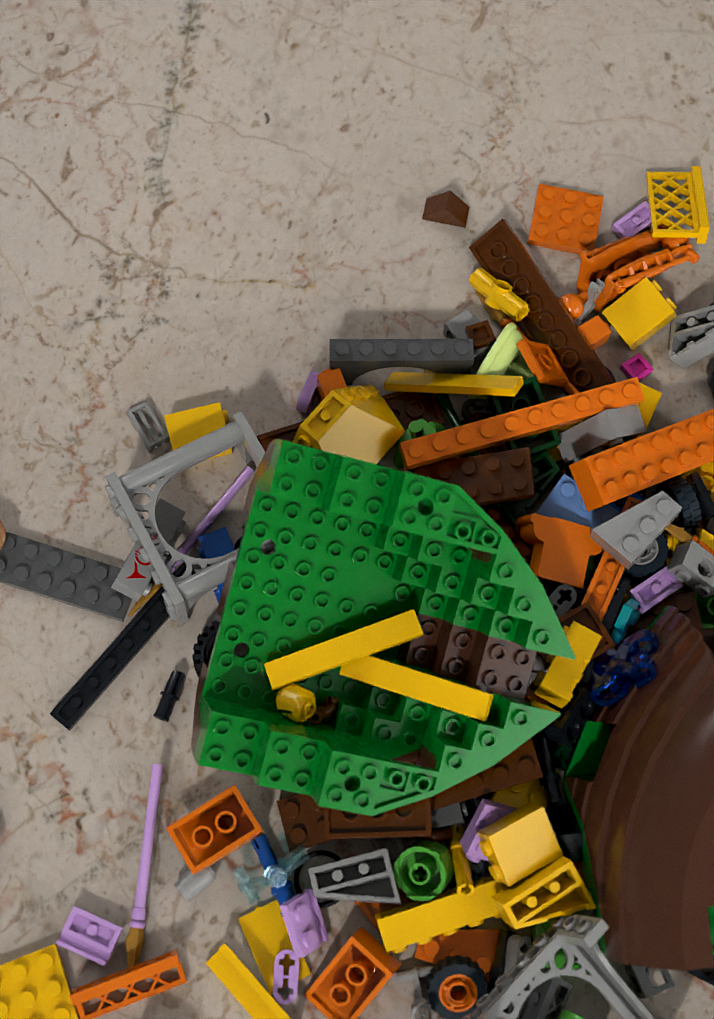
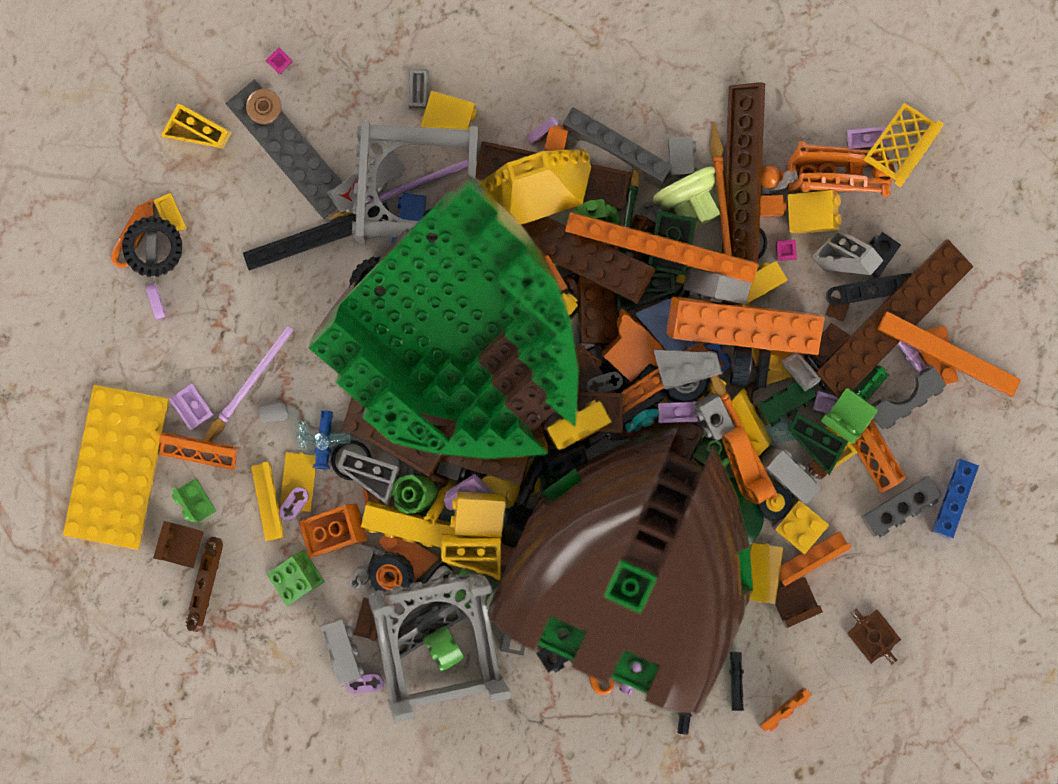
camera: 40 degrees right, 15 degrees up
(169, 696) = (324, 287): black axle -> none
(214, 830) = (302, 390): orange slope -> none
(296, 703) = (393, 344): yellow head -> none
(304, 923) = (323, 479): lavender plate -> none
(325, 710) = (410, 359): reddish brown arm -> none
(343, 649) = (443, 330): yellow tile -> none
(420, 686) = (472, 379): yellow tile -> none
(446, 209) = (733, 46): reddish brown slope -> none
(454, 383) = (641, 189): yellow tile -> none
(481, 334) = (685, 162): reddish brown plate -> none
(498, 294) = (723, 137): yellow piece -> none
(542, 363) = (713, 209): orange tile -> none
(565, 219) = (817, 104): orange plate -> none
(624, 668) = (612, 450): clear blue piece -> none

